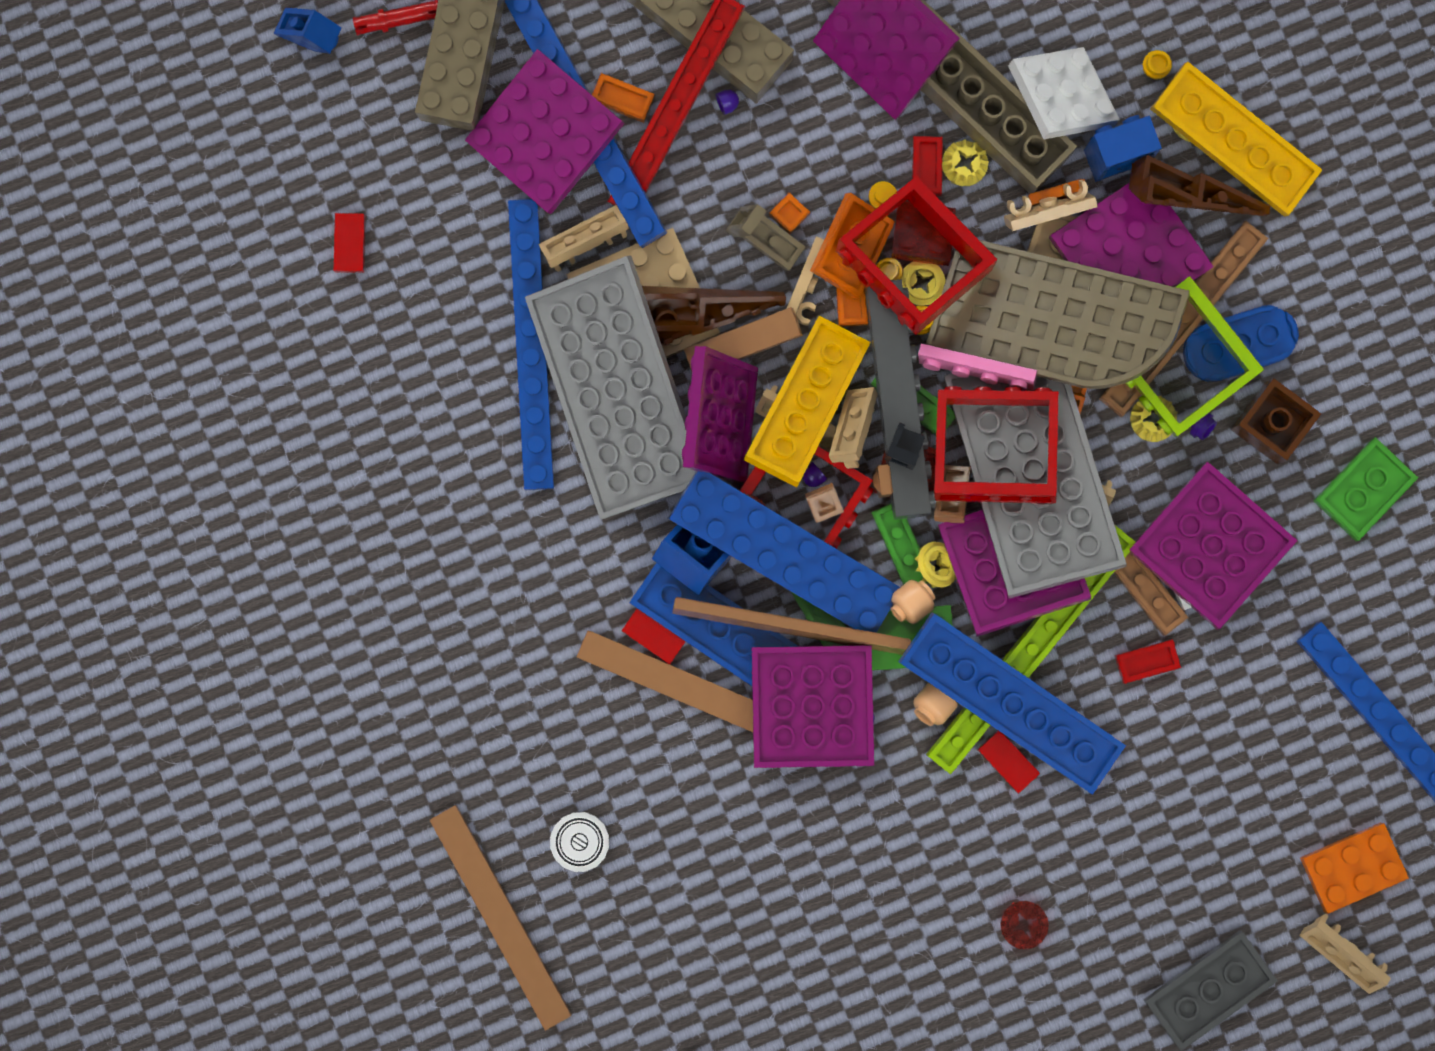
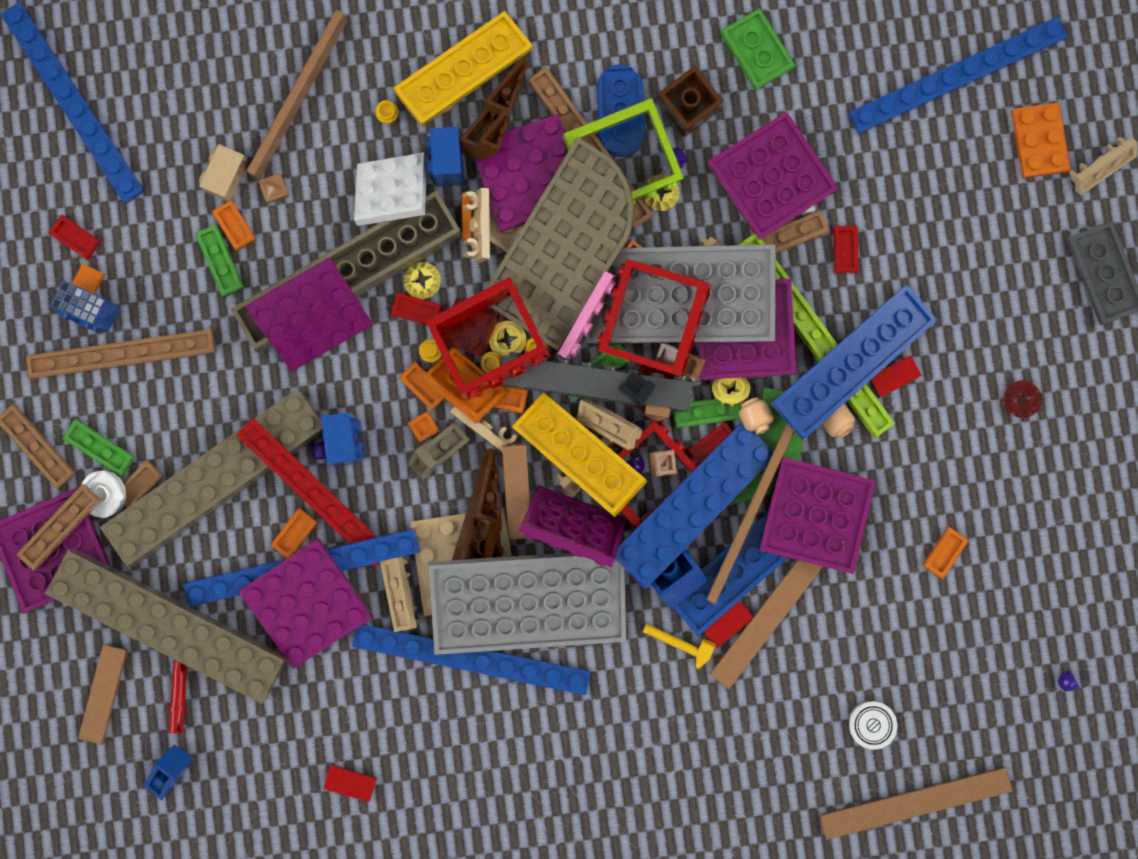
camera: 70 degrees left, 0 degrees up
(610, 614) = (702, 653): none -> yellow piece
(748, 120) = (342, 439): none -> blue brick
(810, 877) = (945, 553): none -> orange tile
(843, 183) = (413, 380): none -> orange tile
(865, 556) = (709, 442): none -> red tile

